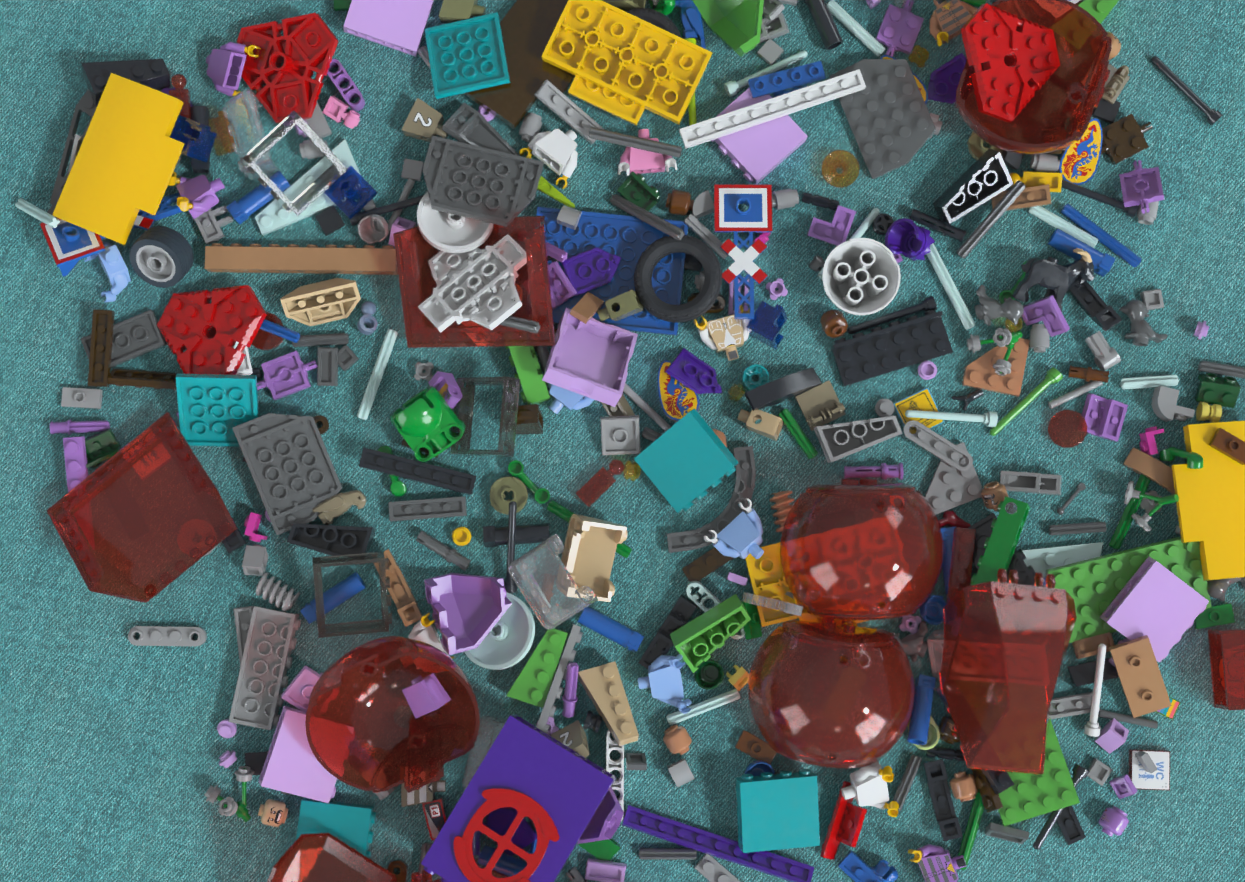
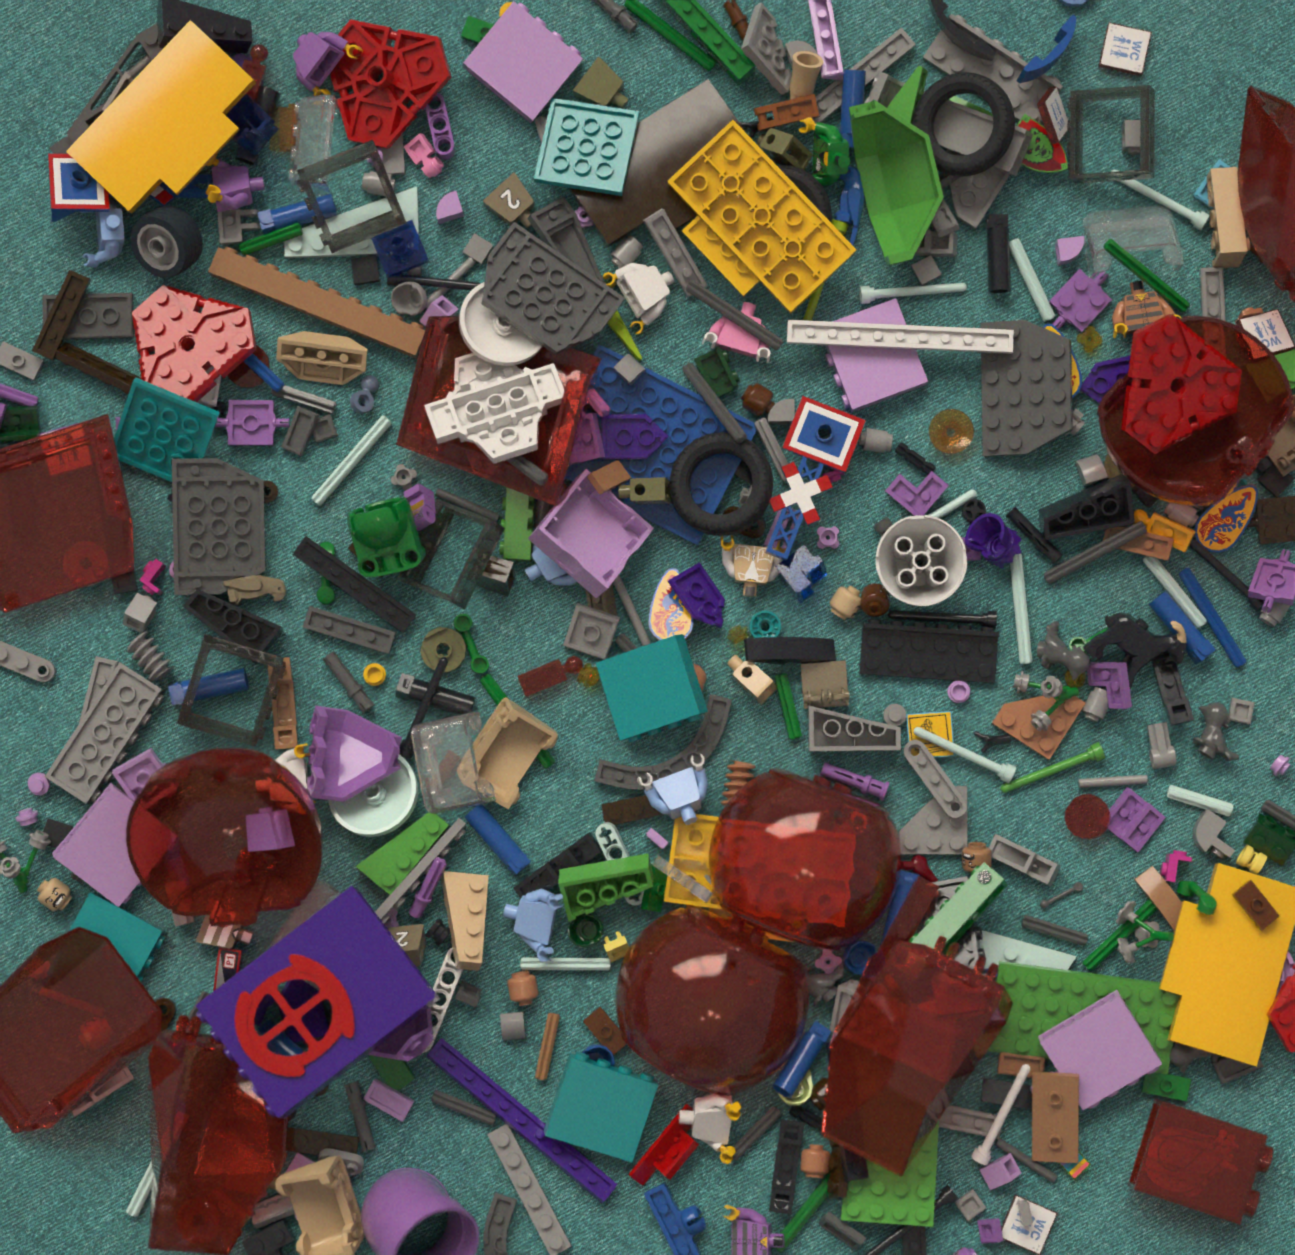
camera: 20 degrees right, 0 degrees up
(37, 213) = (49, 140): light aqua axle -> none
(245, 224) = (271, 239): none -> green axle
(377, 146) = (449, 208): none -> lavender brick
(481, 373) = (461, 502): none -> dark grey bar
(714, 777) = (547, 1046): none -> medium nougat axle
(786, 80) = (929, 311): blue bracket -> none
(811, 334) = (846, 602): none -> tan head
(961, 157) = (1091, 470): none -> light grey brick
(1088, 374) = (1135, 765): reddish brown pin -> none

